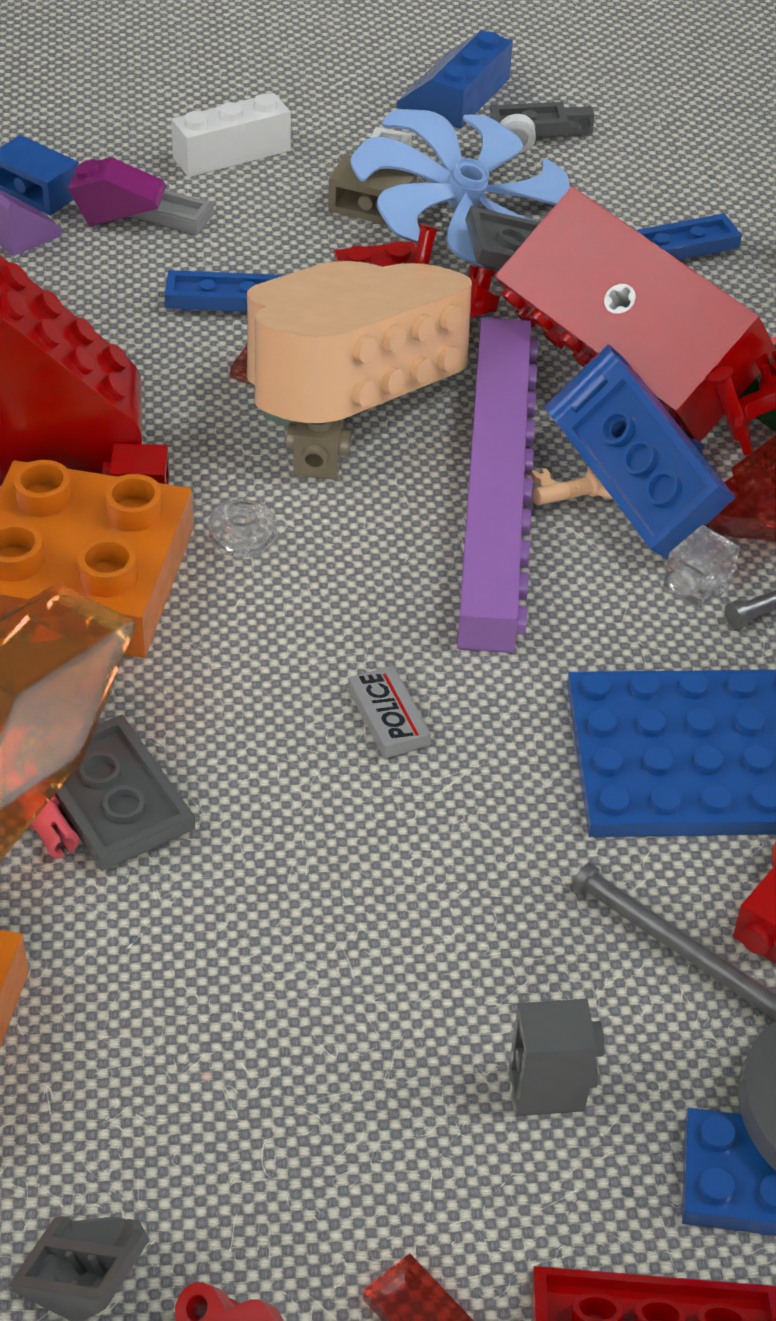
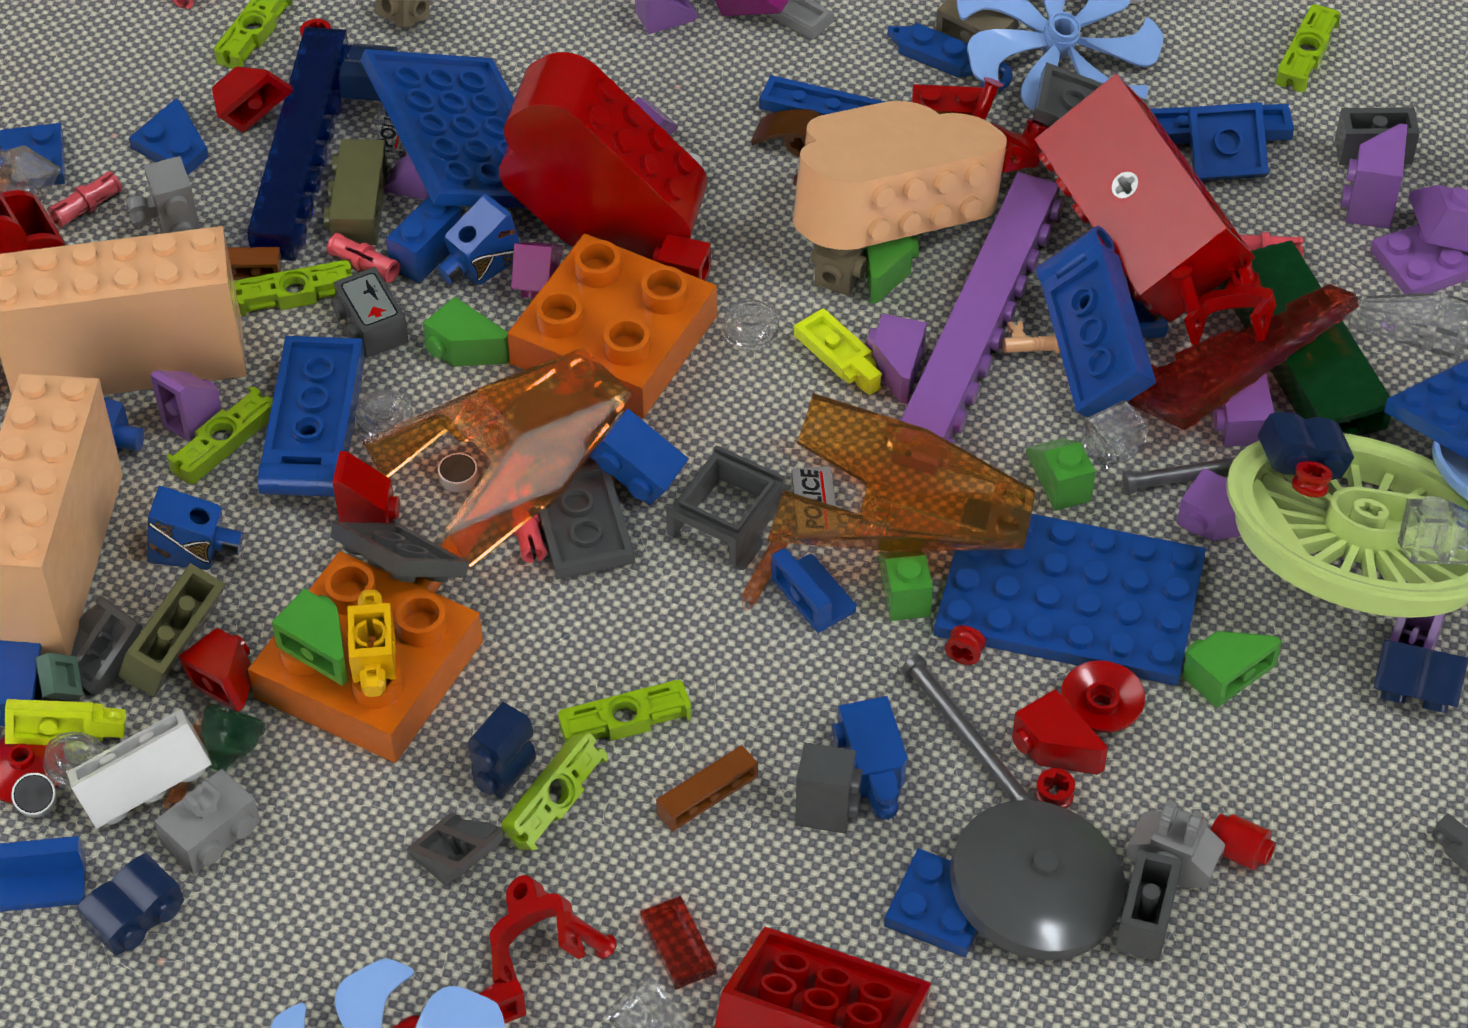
camera: 20 degrees right, 5 degrees up
(108, 1112) = (501, 750): none -> dark blue brick
(164, 699) = (638, 457): none -> blue brick
(175, 1181) = (535, 808): none -> lime piece
(214, 1039) = (650, 704): none -> lime piece
(221, 316) = (785, 124): none -> reddish brown panel
(298, 696) = (745, 474): none -> dark grey piece
(336, 222) = (939, 51): none -> blue plate
(354, 537) = (839, 350): none -> neon yellow hinge
(356, 770) = (764, 568): none -> orange piece
(373, 437) = (889, 265): none -> bright green slope
(389, 1096) = (707, 788): none -> dark orange piece
(421, 527) = (898, 351): none -> medium lavender slope
(424, 814) = (811, 589): none -> blue panel
(504, 668) = (917, 489): none -> clear orange windscreen
(537, 780) = (906, 584): none -> bright green slope
(576, 967) = (880, 752): none -> blue hinge
(637, 838) = (965, 645): none -> red bush
(662, 617) = (1063, 472): none -> bright green slope
(694, 242) = (1228, 141): none -> blue plate
(711, 178) = (1313, 31): none -> lime piece

